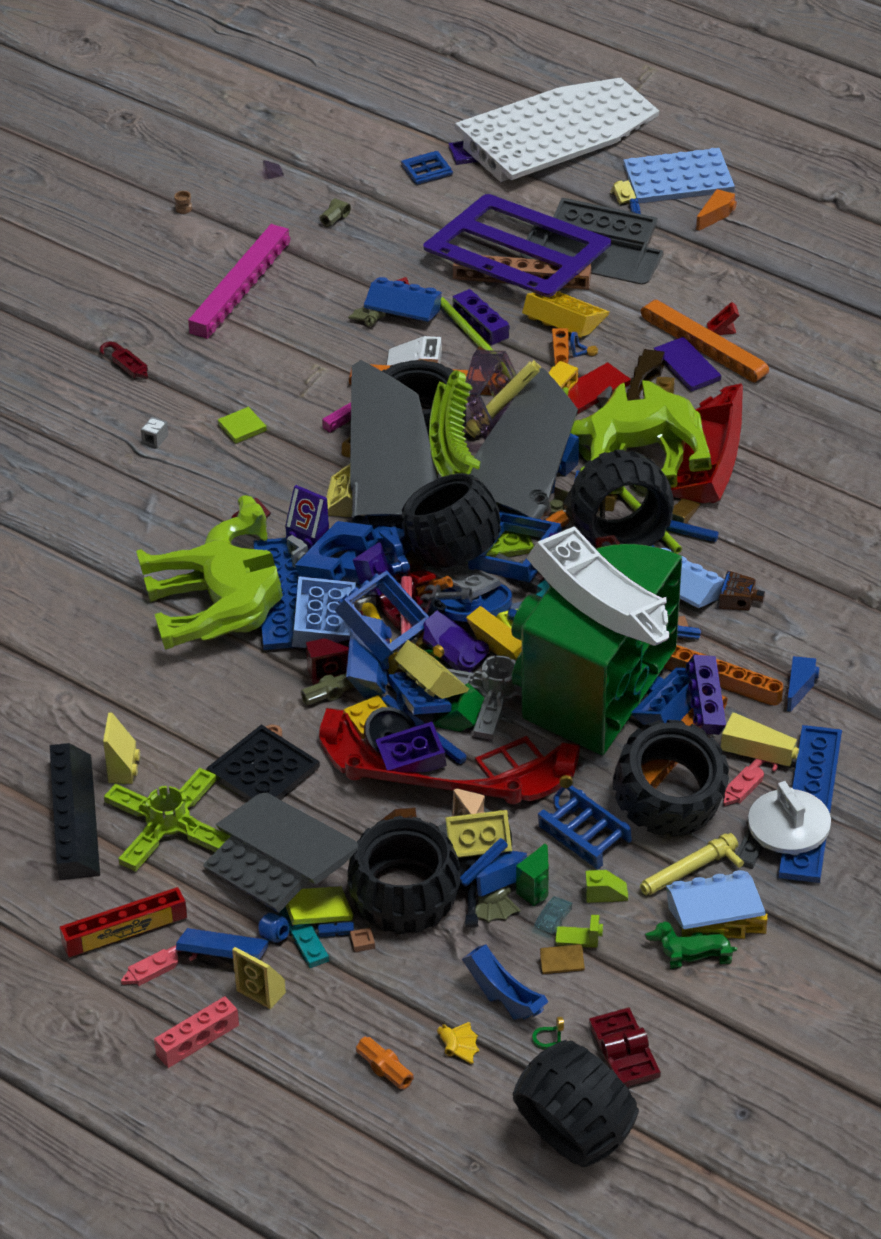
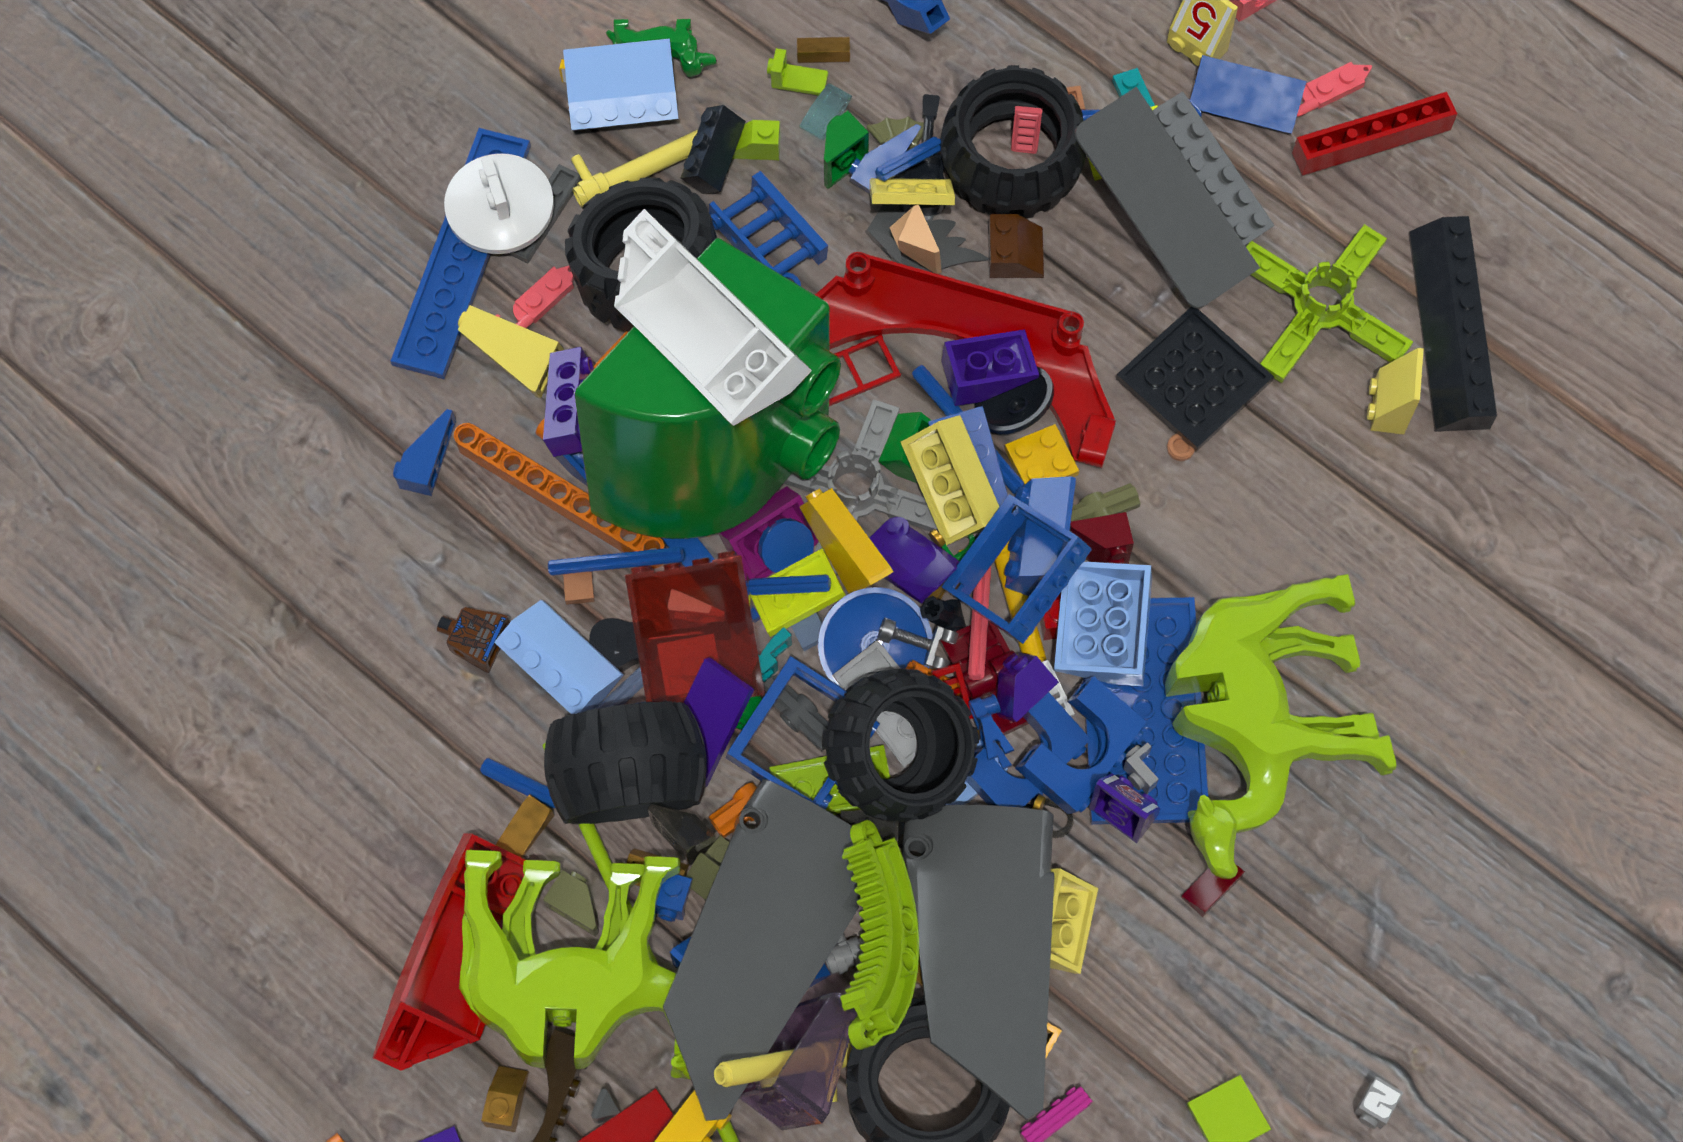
camera: 175 degrees left, 25 degrees up
(635, 870) = (712, 149): none -> black brick

